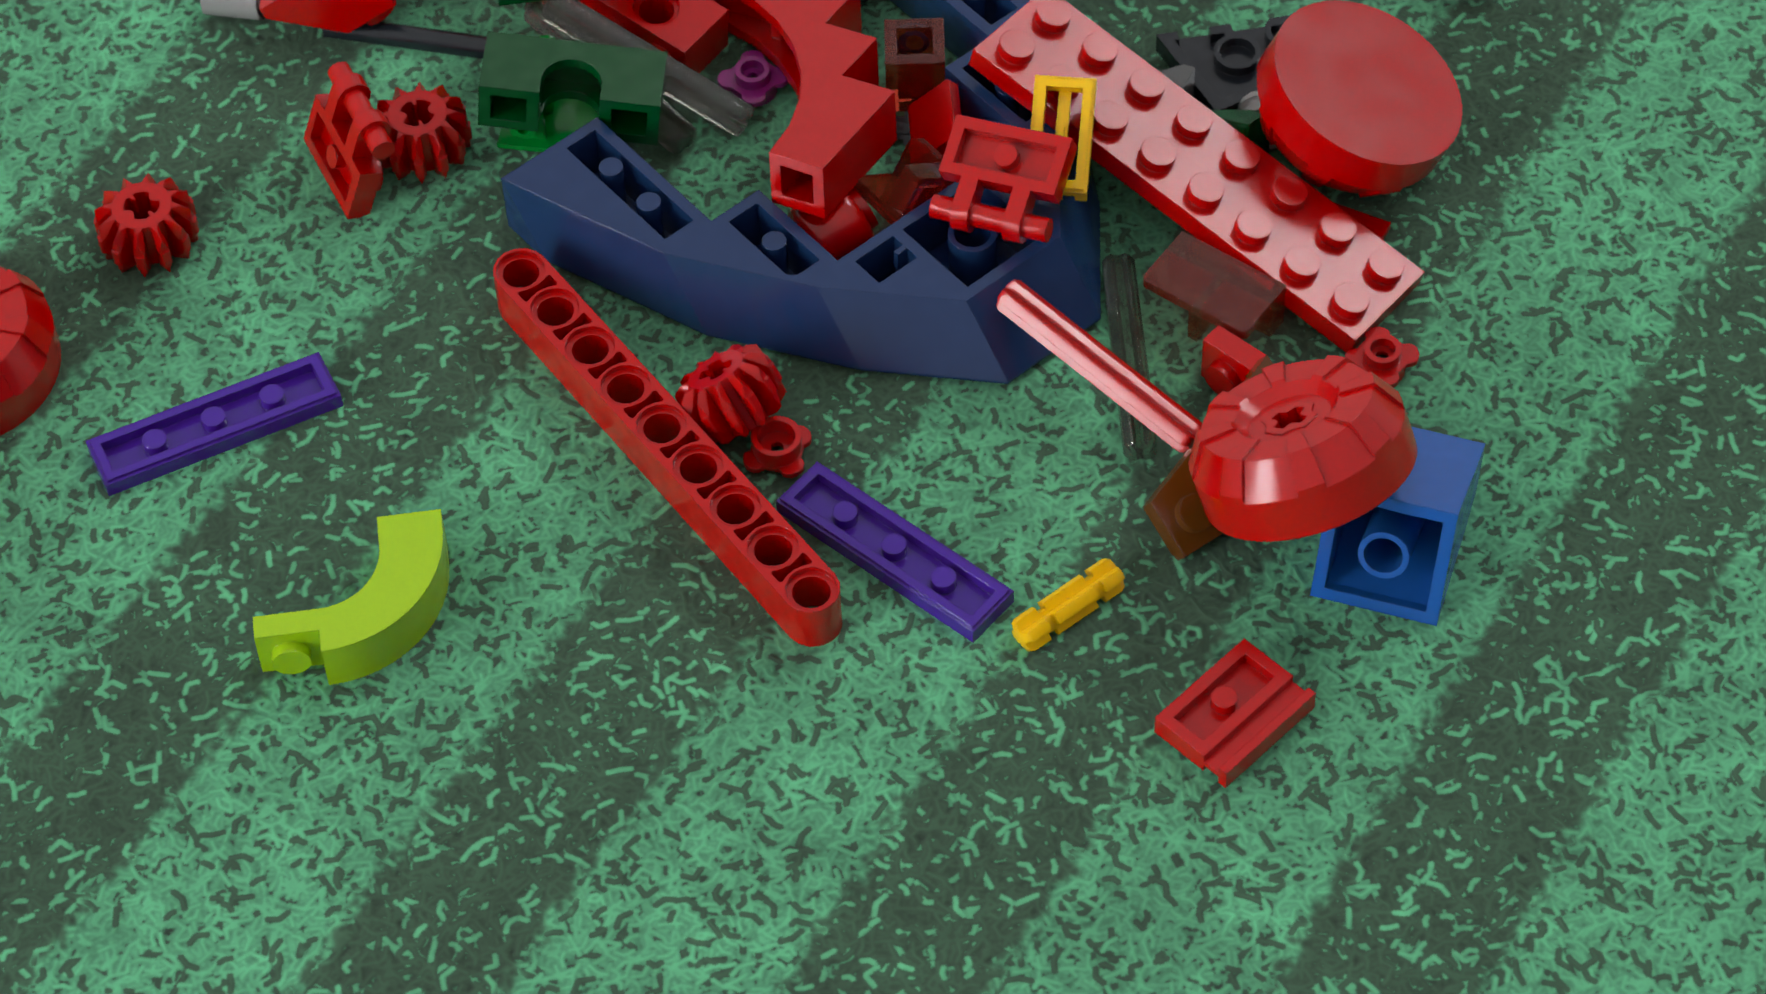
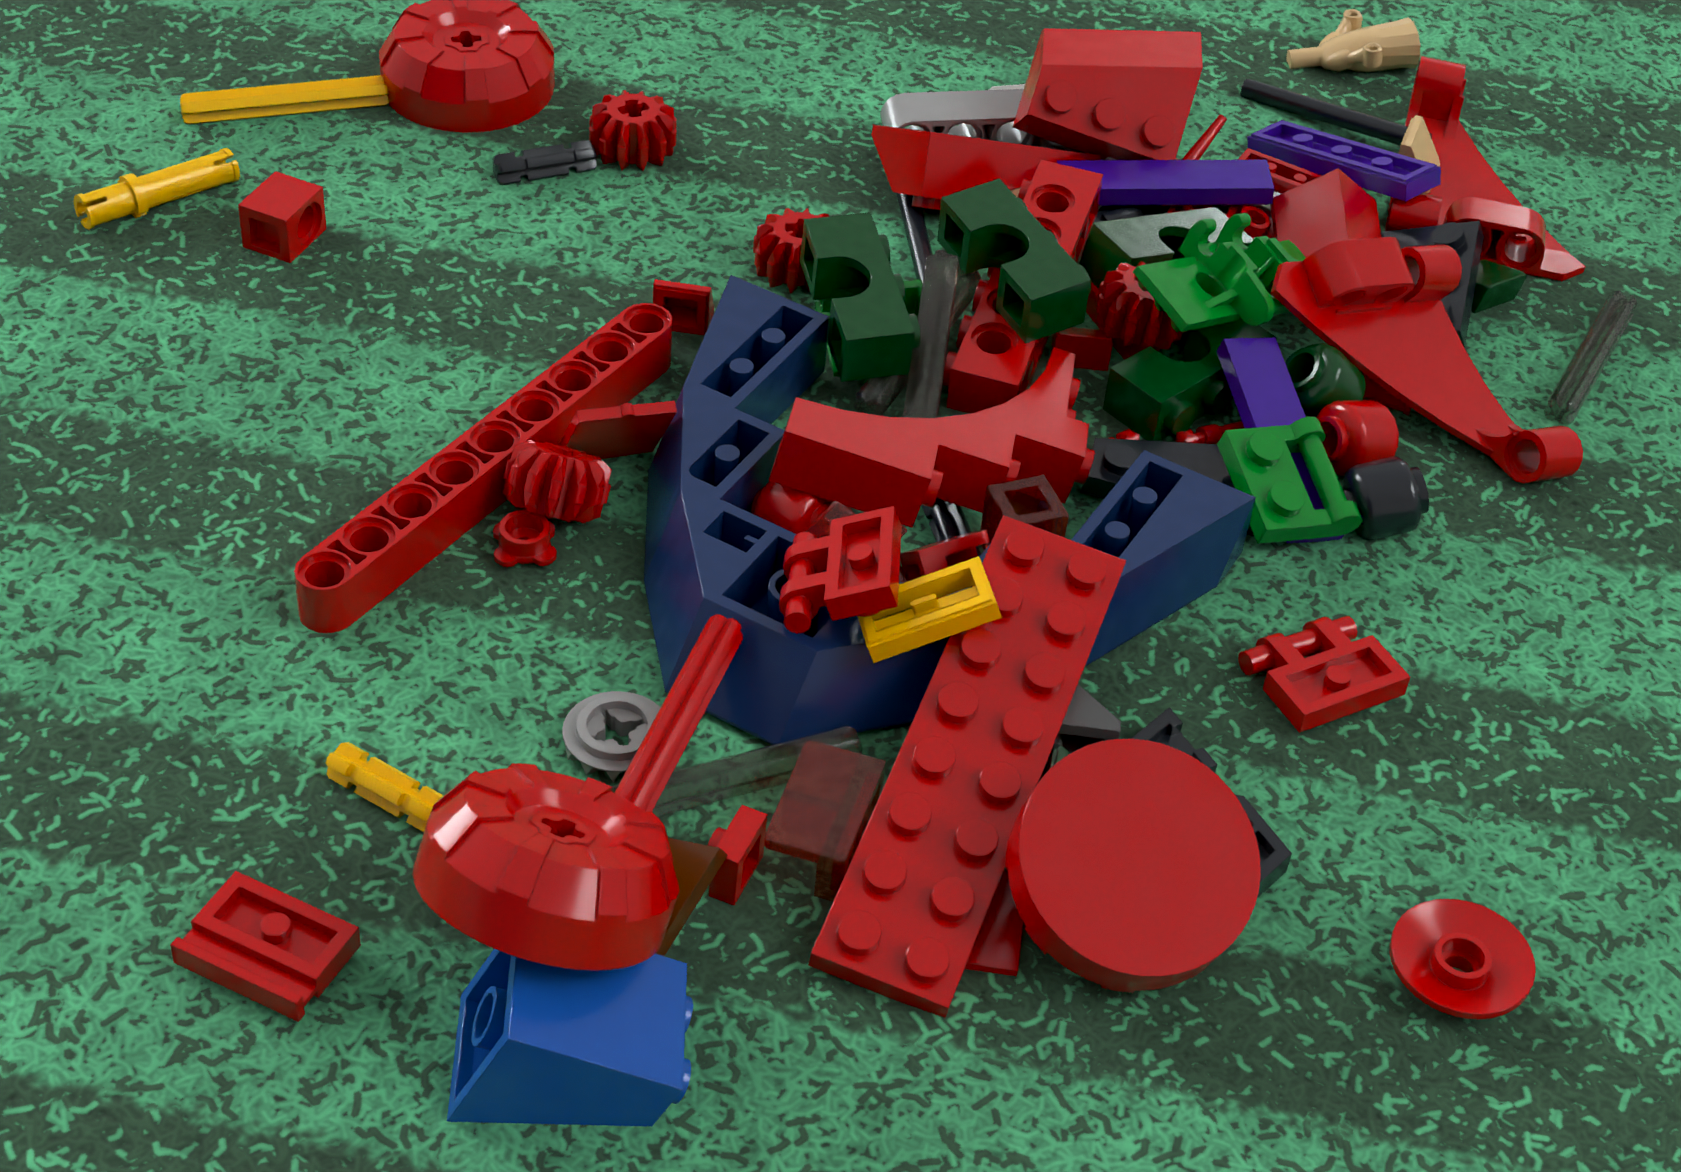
camera: 65 degrees right, 10 degrees down
(74, 693) = (138, 194): none -> yellow pin
(158, 319) = (544, 162): none -> black axle
(185, 561) = (282, 216): none -> red brick
(214, 423) = (448, 215): dark purple tile -> none
(349, 140) = (753, 199): red plate -> none
(375, 622) = (268, 336): lime arch -> none
(474, 251) = (688, 304): none -> red slope
(683, 328) = (619, 429): none -> red piece
(895, 551) = (421, 651): dark purple tile -> none
(1075, 412) = (586, 731): none -> light grey gear
(1380, 342) = (807, 1008): red plate -> none

